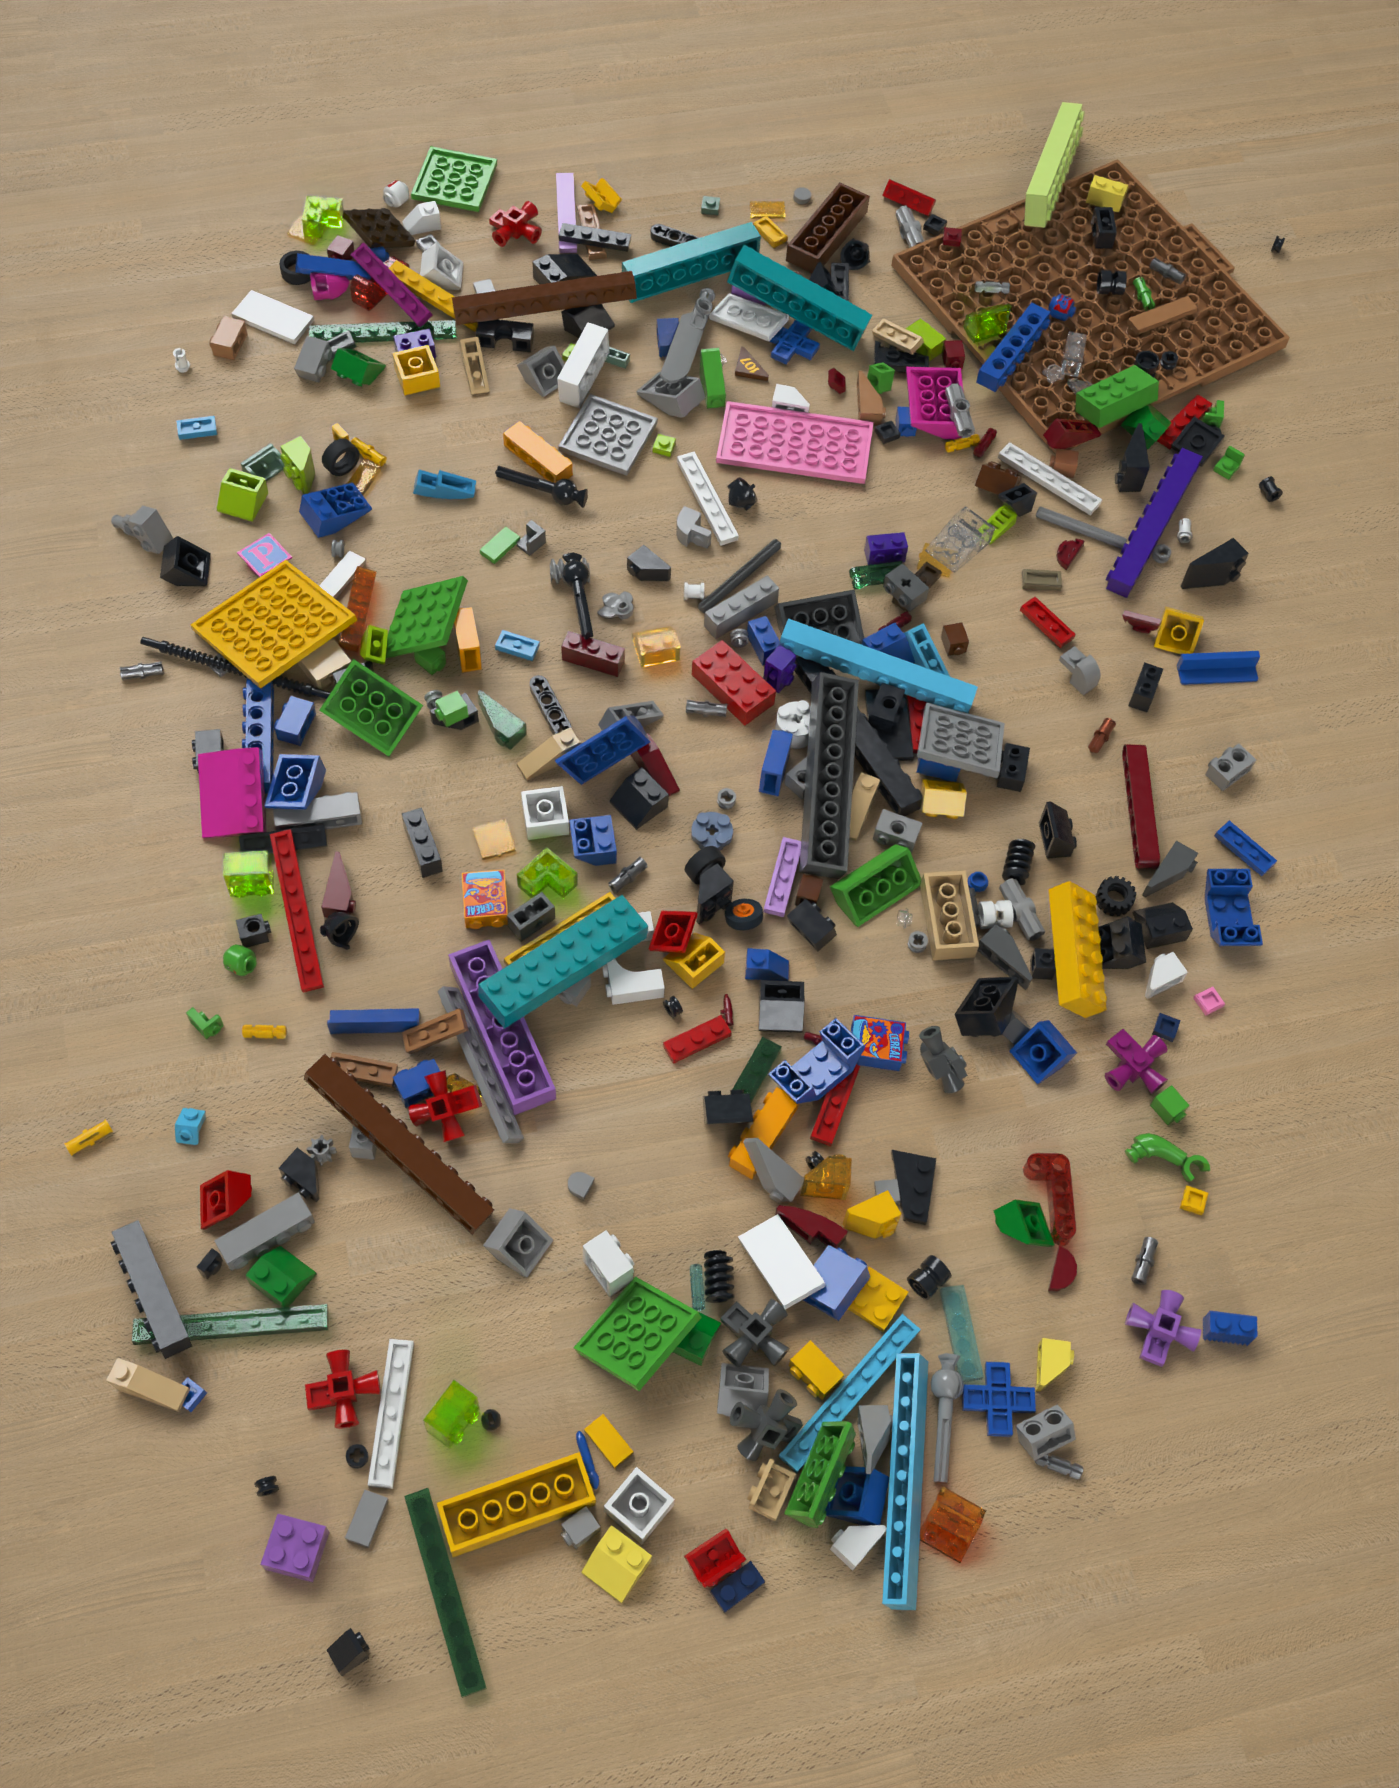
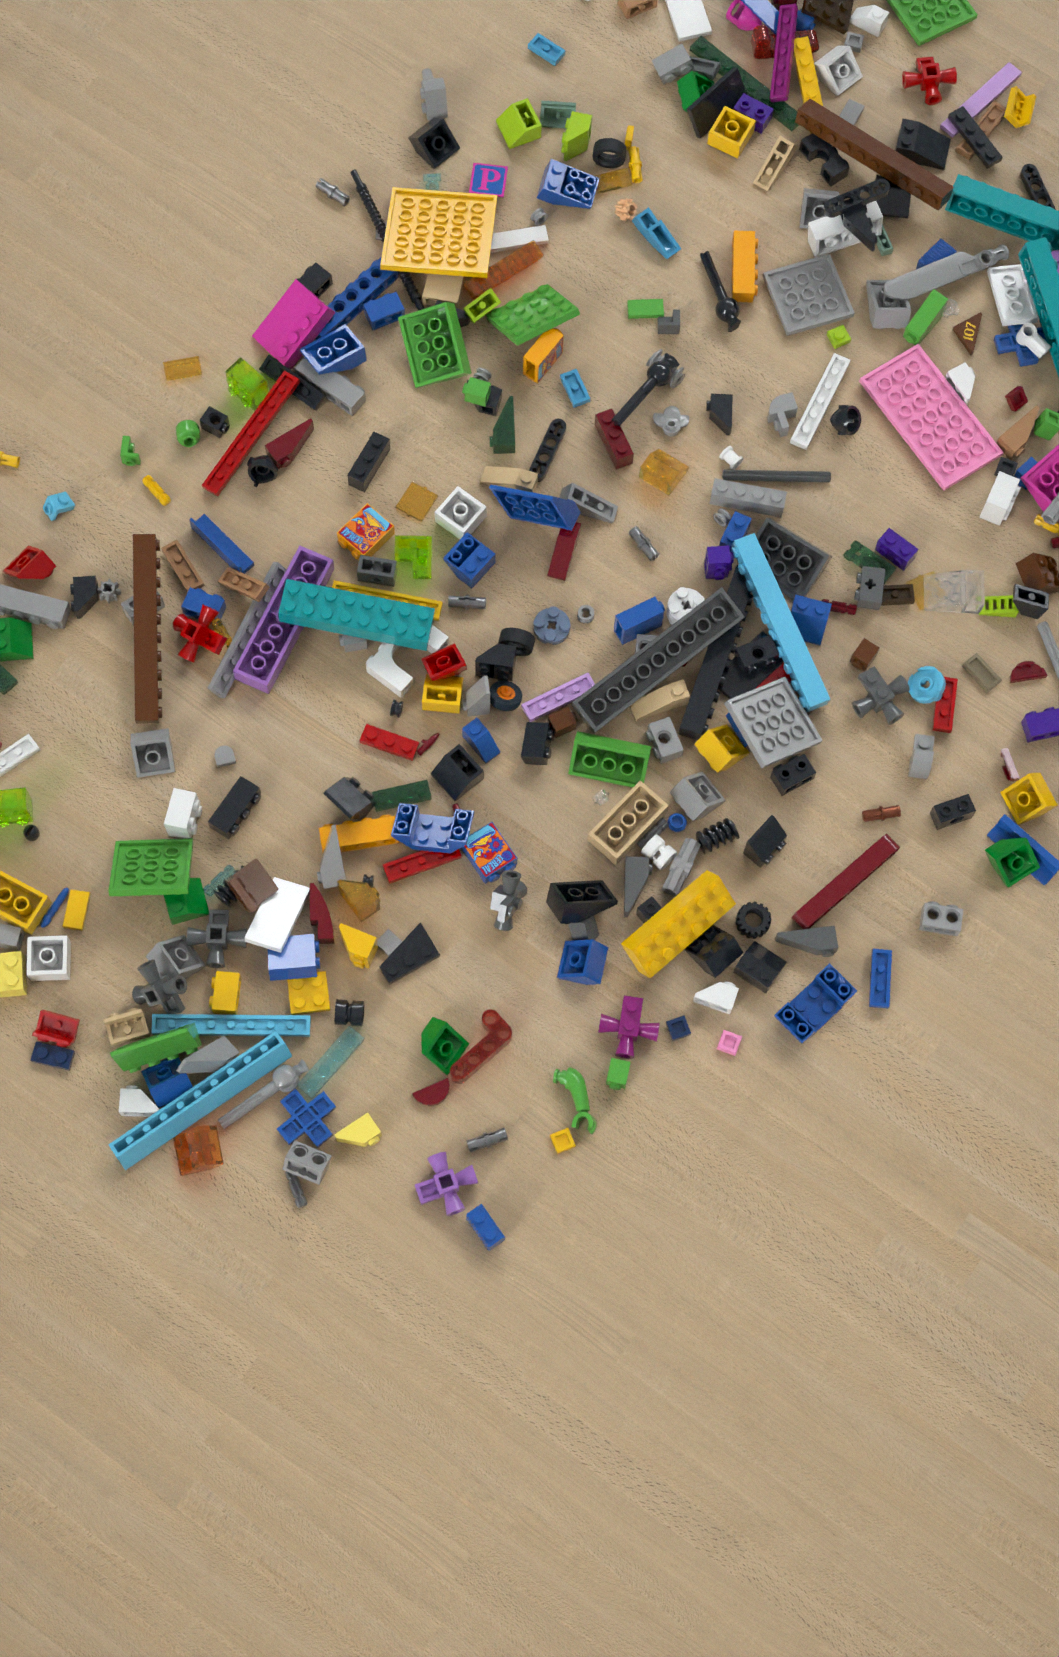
camera: 50 degrees right, 10 degrees up
(171, 915) = (182, 368): none -> clear yellow tile
(217, 591) = (432, 178): none -> clear light blue tile
(380, 358) = (709, 105): none -> black tile
(401, 487) = (626, 209): none -> light nougat gear
(431, 659) = (510, 350): bright green brick -> none
(578, 325) = (858, 201): none -> black beam
(595, 345) = (859, 225): none -> black slope
(640, 798) = (530, 561): black slope -> none
(641, 1215) = (235, 807): none -> black brick
(732, 930) = (477, 698): none -> light grey slope
(733, 682) = (680, 543): red brick -> none
(738, 1259) = (252, 885): none -> reddish brown bracket
(798, 331) = (1033, 340): none -> white piece
(912, 451) = (1000, 498): none -> white brick
(917, 948) = (588, 815): light grey bush -> none
(924, 650) = (830, 645): medium azure slope -> none
(969, 849) = (697, 796): none -> light grey slope
(1002, 655) = (880, 695): none -> dark grey brick
(1021, 608) = (933, 692): none -> medium azure plate
(1221, 681) = (1012, 859): none -> green slope

